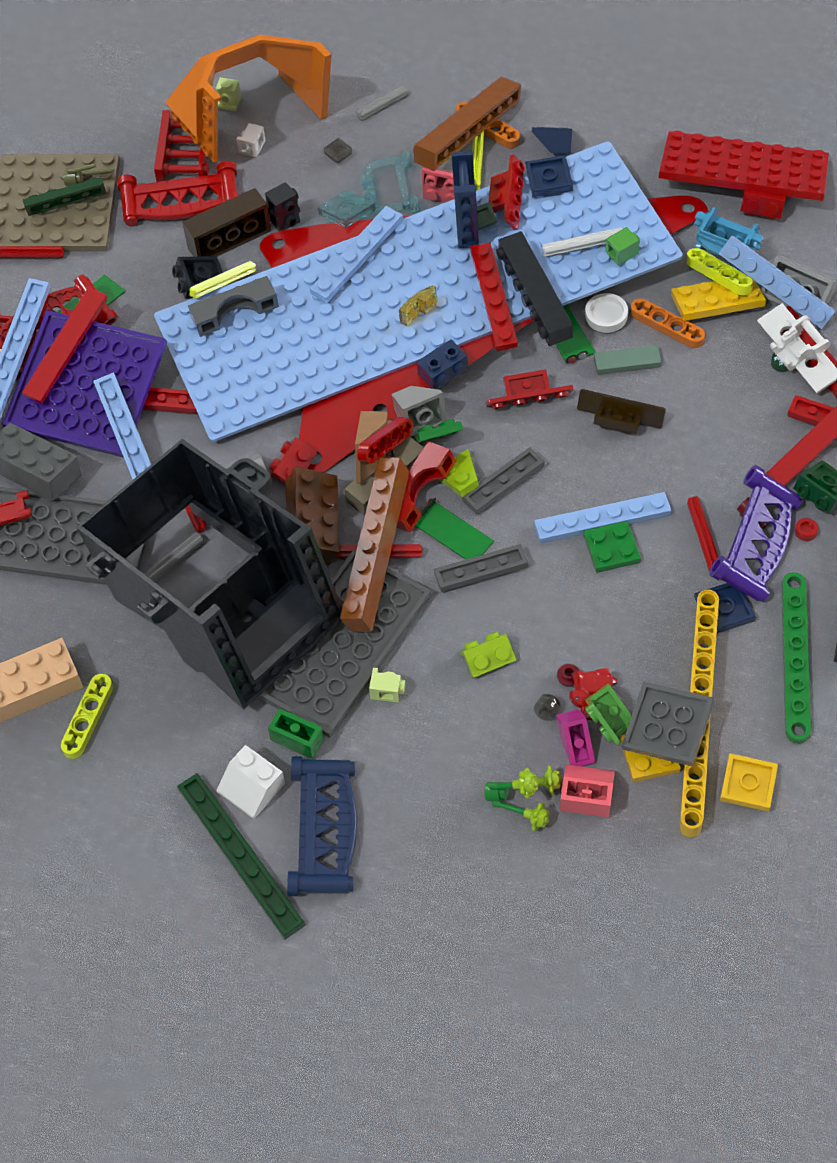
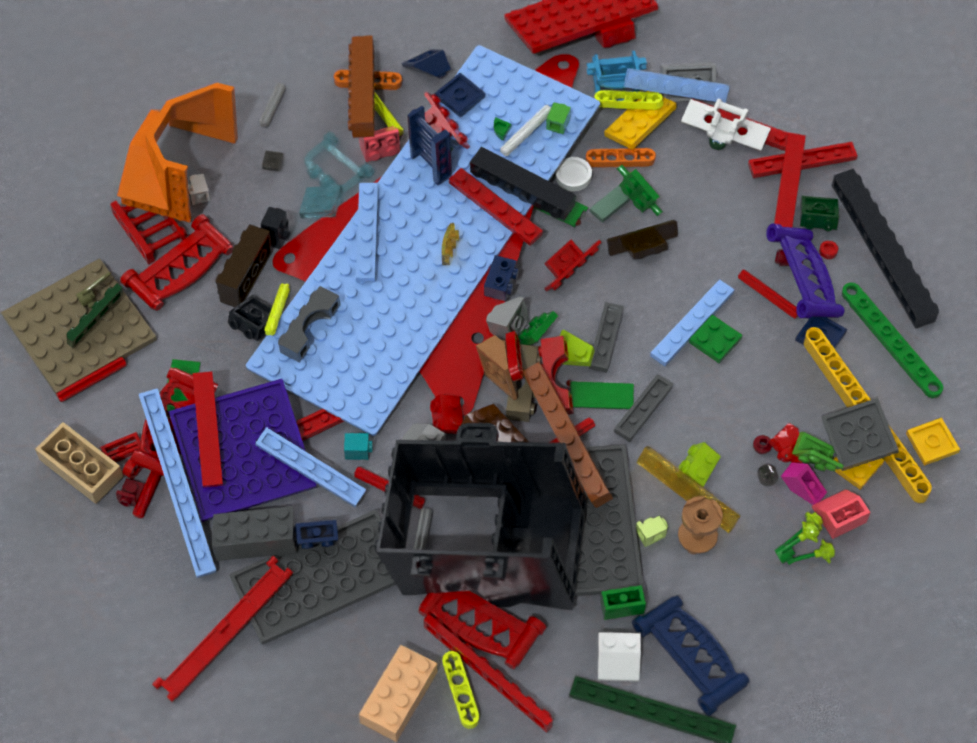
camera: 40 degrees left, 0 degrees up
(77, 492) = (316, 533): none -> dark blue brick
(123, 724) = (493, 677): none -> red plate
(182, 701) = (521, 634): none -> red piece
(190, 435) = (357, 446): none -> teal brick
(427, 707) = (700, 525): none -> medium nougat piece
(455, 671) = (683, 484): none -> clear yellow tile
(562, 227) = (501, 128): none -> green tile
(648, 355) = (639, 190): none -> green plate

